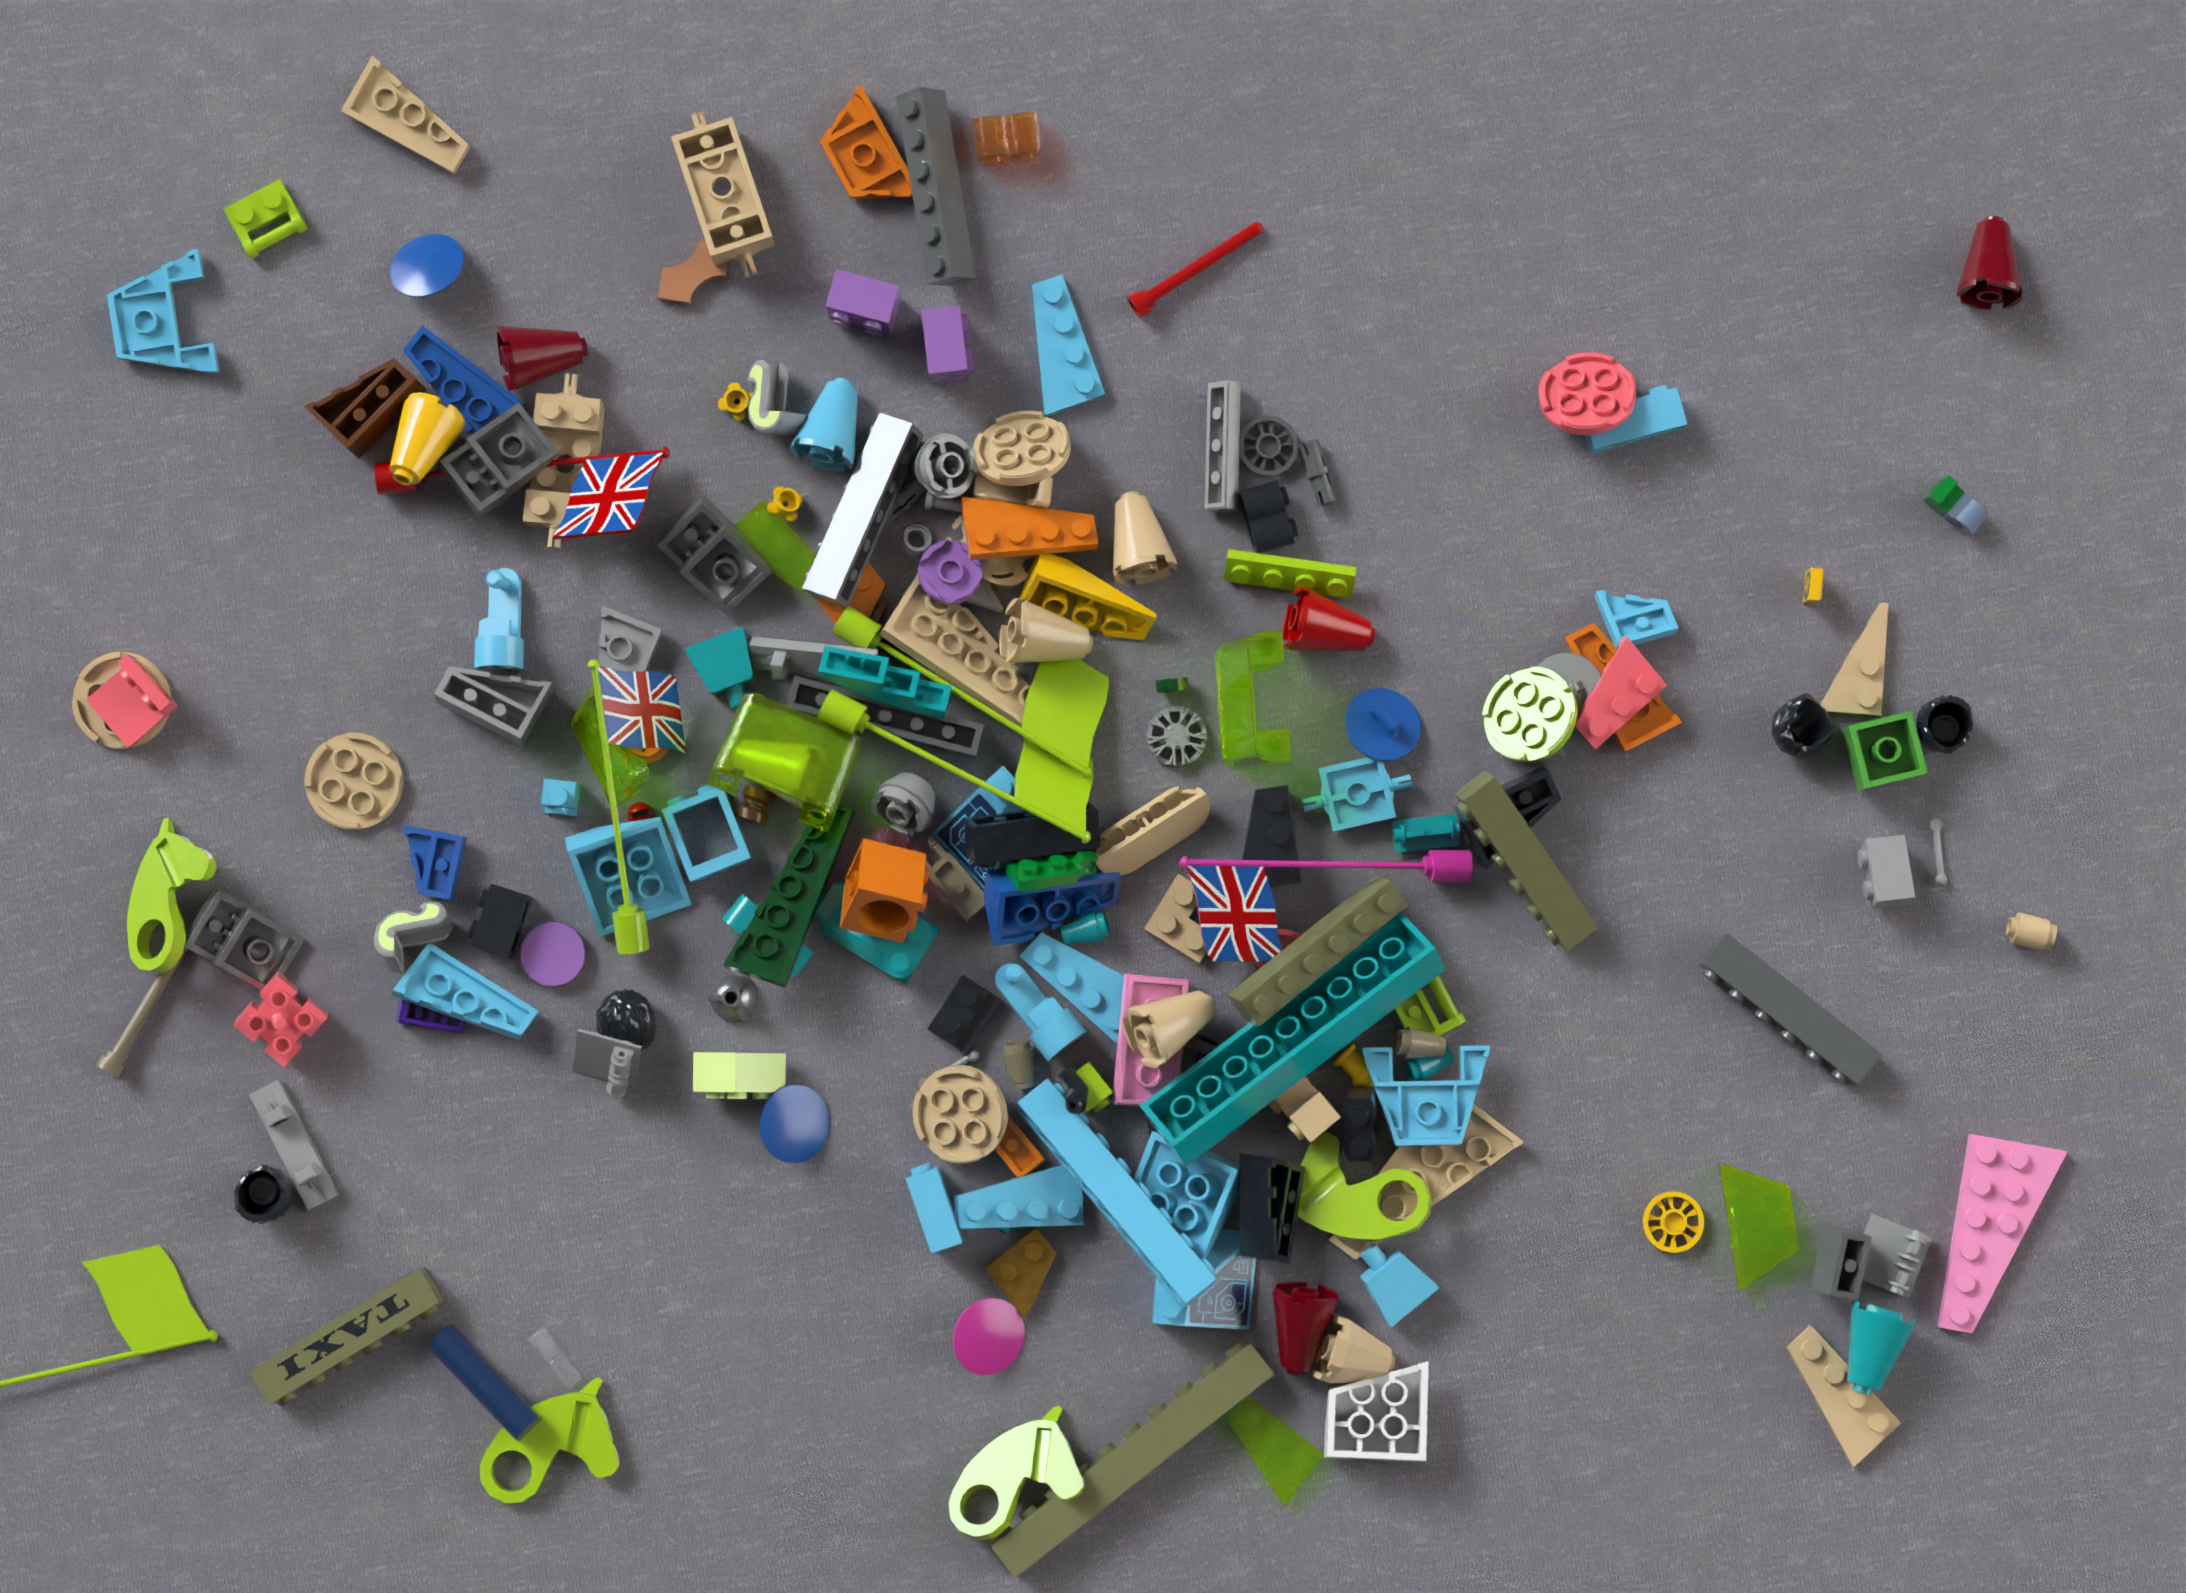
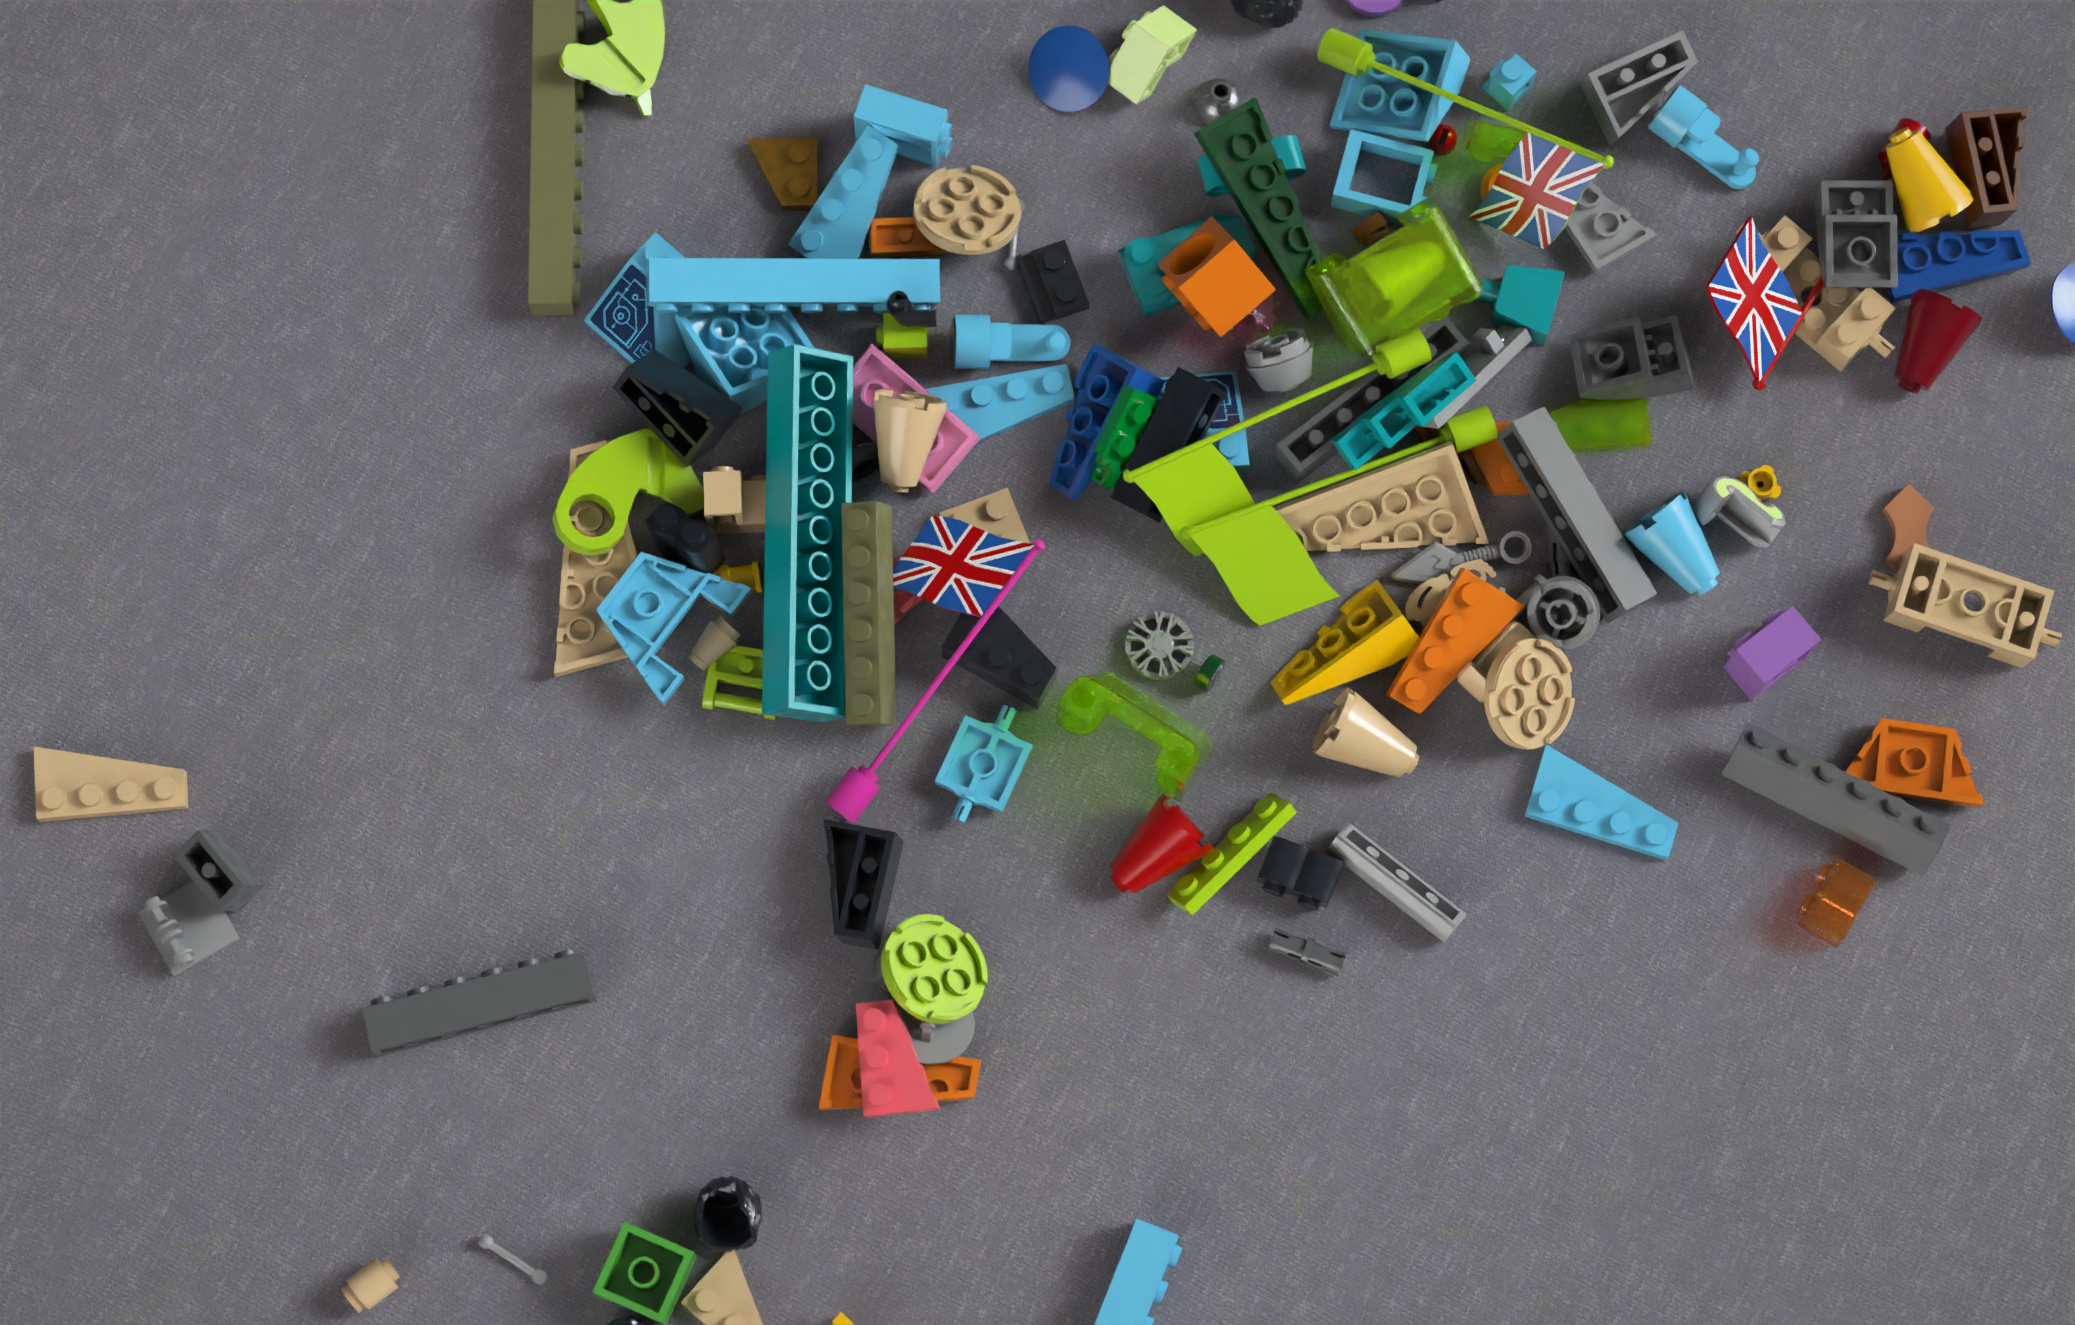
camera: 130 degrees right, 10 degrees down
(789, 496) = (1642, 462): yellow plate -> none
(945, 346) = (1677, 697): medium lavender brick -> none
(948, 573) = (1461, 543): medium lavender tile -> none
(955, 882) = (1166, 354): dark tan hinge -> none
(988, 1336) = (755, 95): dark pink shield -> none
(1020, 1063) = (972, 295): dark tan cone -> none
(1041, 635) = (1340, 587): tan cone -> none
(1087, 929) = (1044, 440): teal cone -> none
(1143, 301) = (1588, 912): red piece -> none
(1152, 830) = (1091, 556): tan brick -> none
(1268, 446) = (1366, 926): dark grey wheel -> none
(1274, 1447) = (466, 265): clear neon green wing -> none
(1301, 1323) = (555, 363): dark red cone -> none
(1351, 1354) = (491, 384): tan cone -> none
(1379, 1417) = (415, 364): white wedge -> none
(1382, 724) = (1028, 834): blue shield -> none
(1394, 1283) = (522, 468): medium azure torso -> none
(1424, 1068) = (686, 639): teal cone -> none
(1426, 833) = (900, 798): teal hinge -> none
(1525, 860) = (803, 855): olive brick -> none
(1587, 394) = (1193, 1253): coral tile -> none
(1636, 618) = (947, 1140): medium azure wing -> none
(1673, 1222) = (377, 755): yellow wheel -> none
(1757, 1223) = (315, 828): clear neon green wing -> none
(1875, 1345) = (122, 843): teal cone -> none
(1886, 872) = (533, 1190): light grey brick -> none
(1995, 1205) = (153, 1057): bright pink wing -> none

